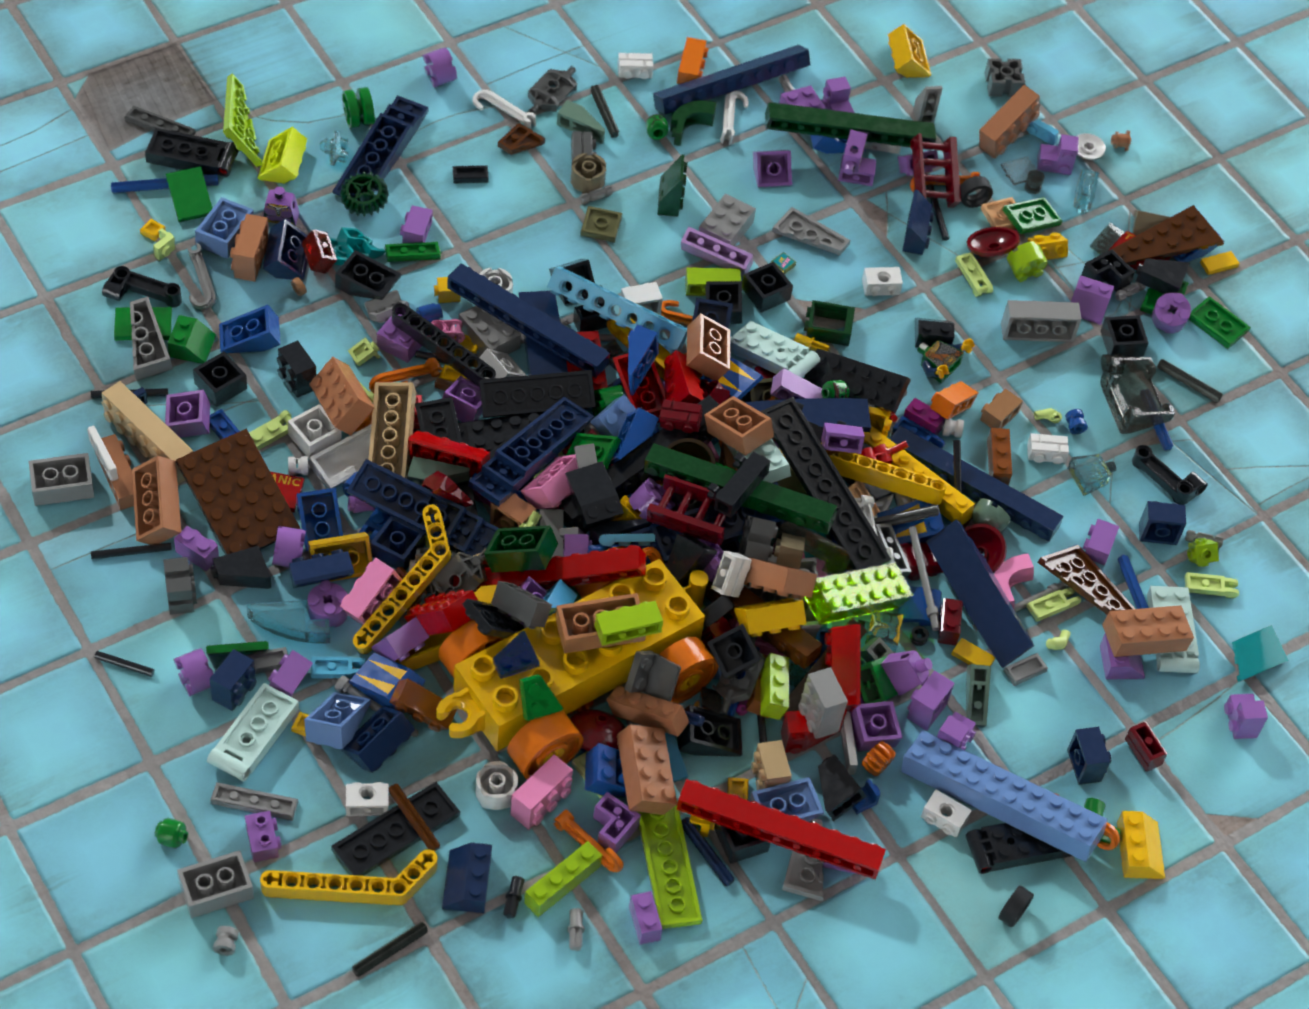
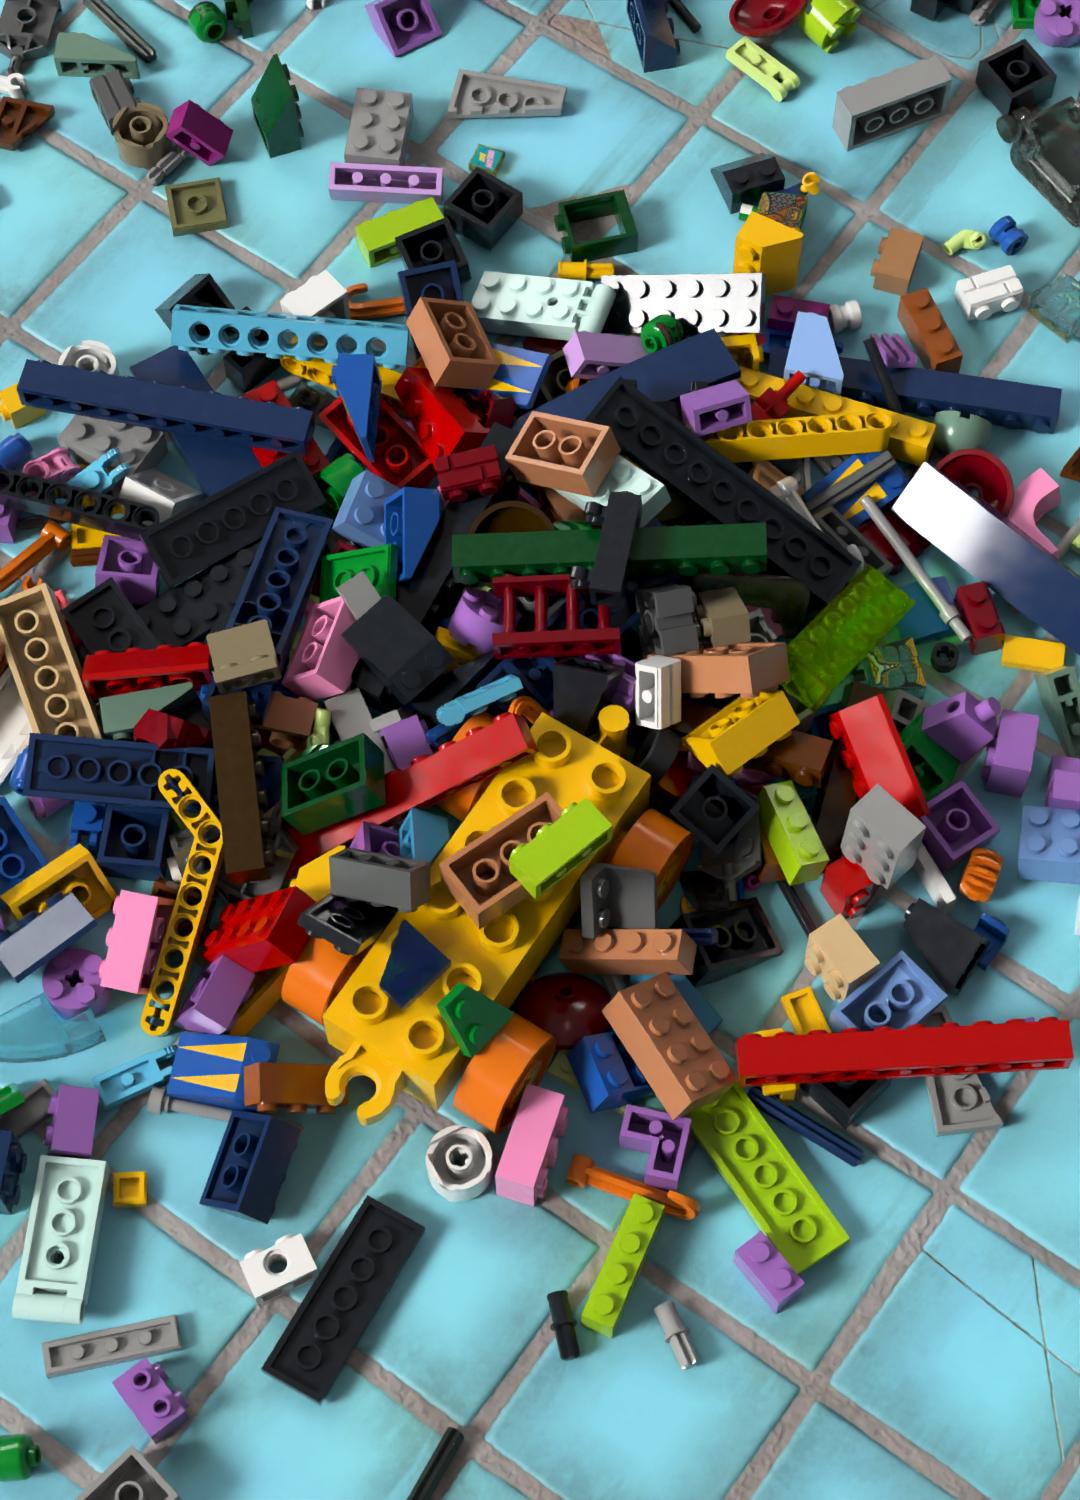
camera: 15 degrees left, 10 degrees up
(336, 720) = (175, 1163): medium blue slope -> none
(348, 882) = (311, 1417): yellow beam -> none
(414, 817) = (363, 1269): reddish brown axle -> none
(467, 531) = (240, 788): none -> dark brown brick
(467, 878) = (483, 1327): dark blue slope -> none
(471, 341) = (96, 477): none -> medium azure hinge
(503, 463) = (243, 657): none -> dark tan bracket
(621, 183) = (199, 132): none -> magenta brick
(882, 281) = (640, 132): white brick -> none
(921, 437) = (814, 354): none -> light blue slope
(923, 371) = (771, 250): none -> yellow slope
(953, 400) = (827, 275): orange brick -> none
(976, 458) = (896, 348): none -> medium lavender tile
(1092, 298) = (945, 35): medium lavender slope -> none

